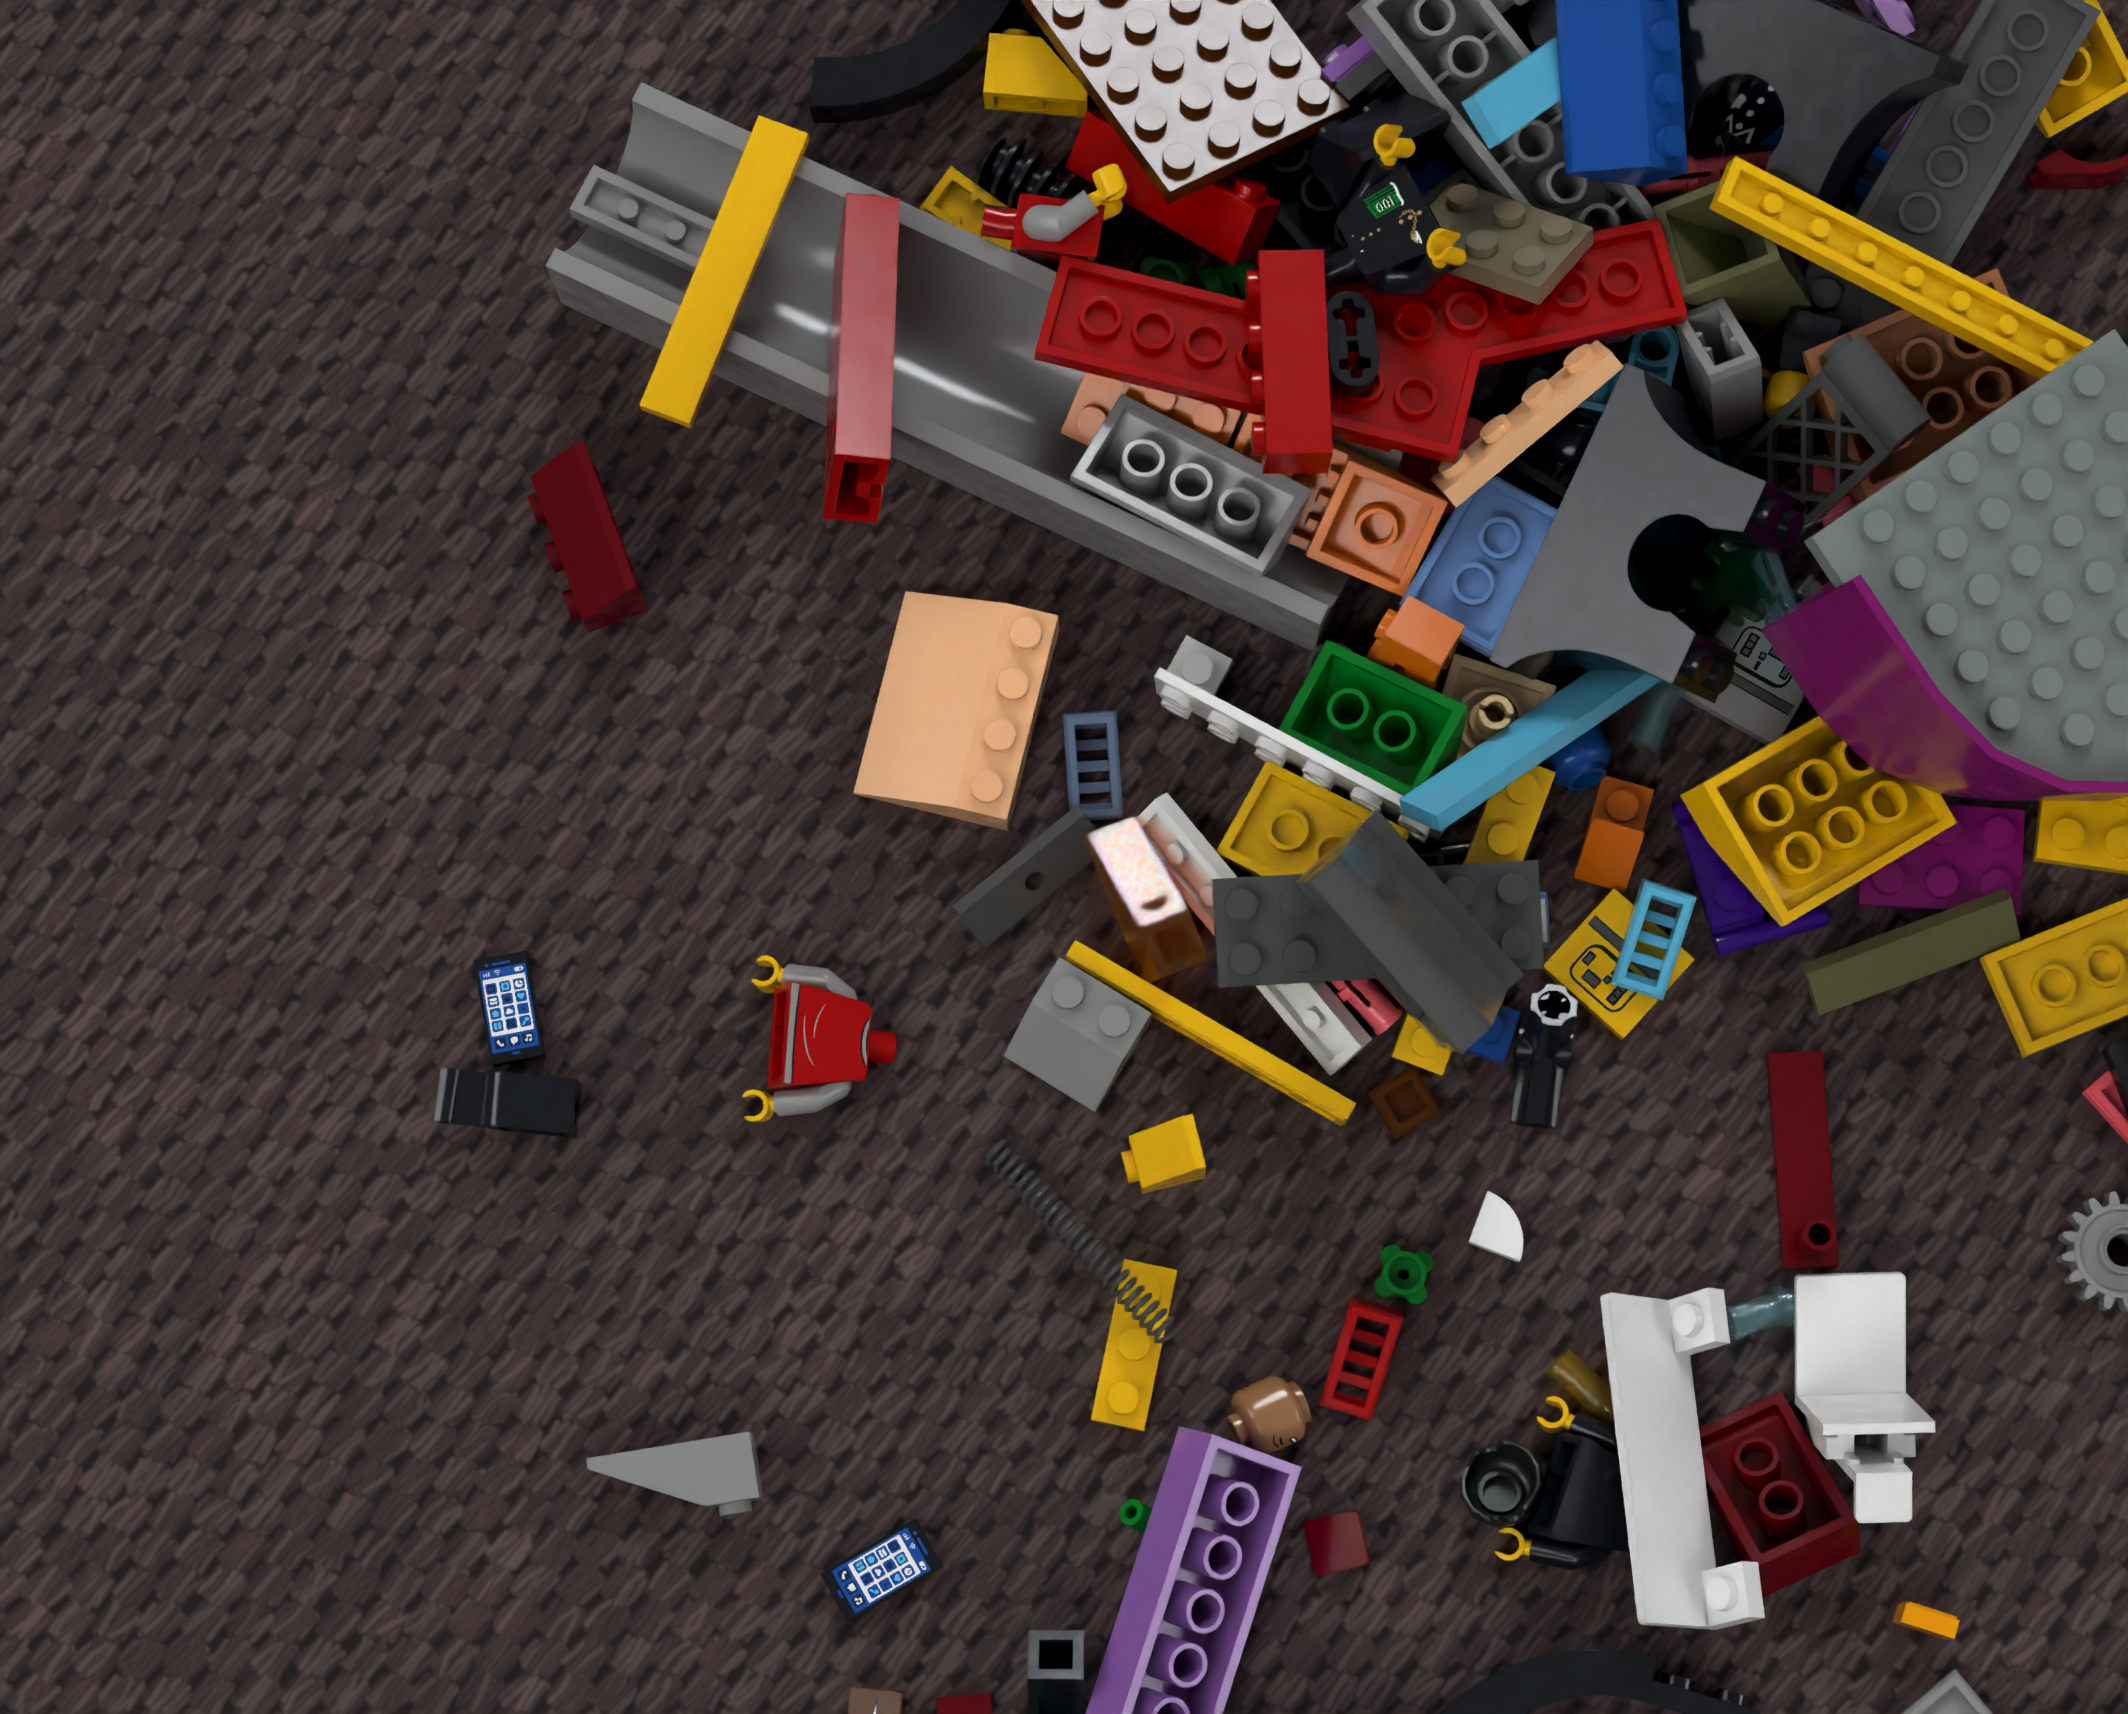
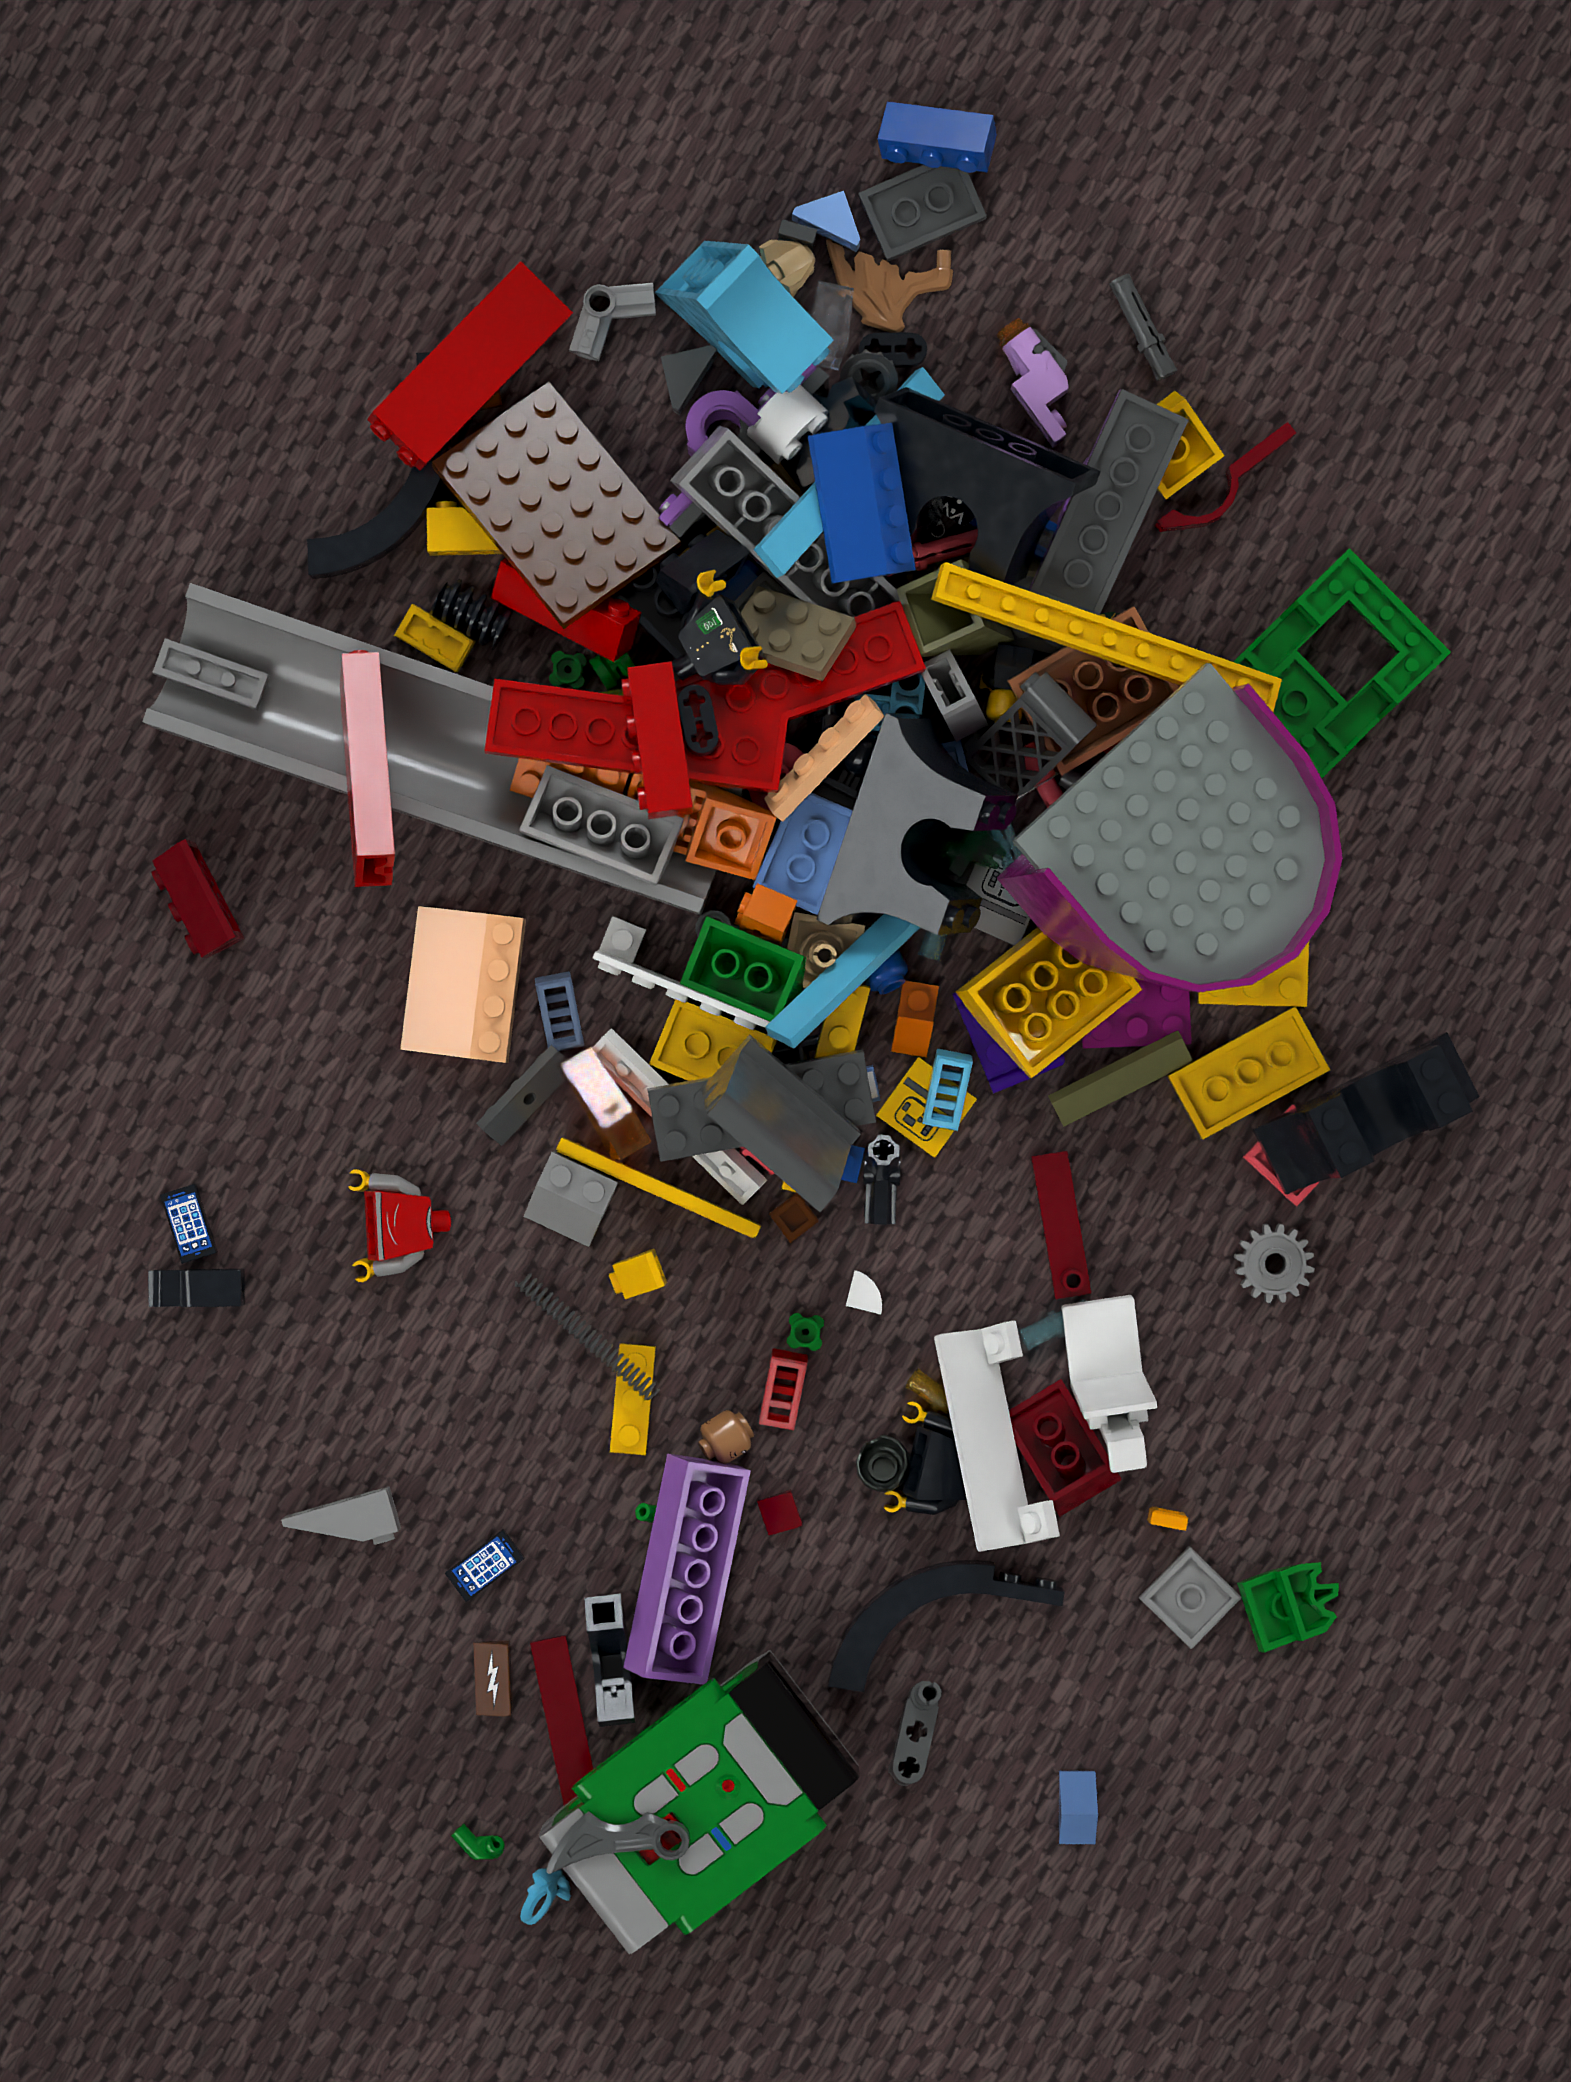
camera: 15 degrees left, 10 degrees up
(724, 272) = (265, 713): yellow tile -> none
(1054, 227) = (489, 655): torso -> none

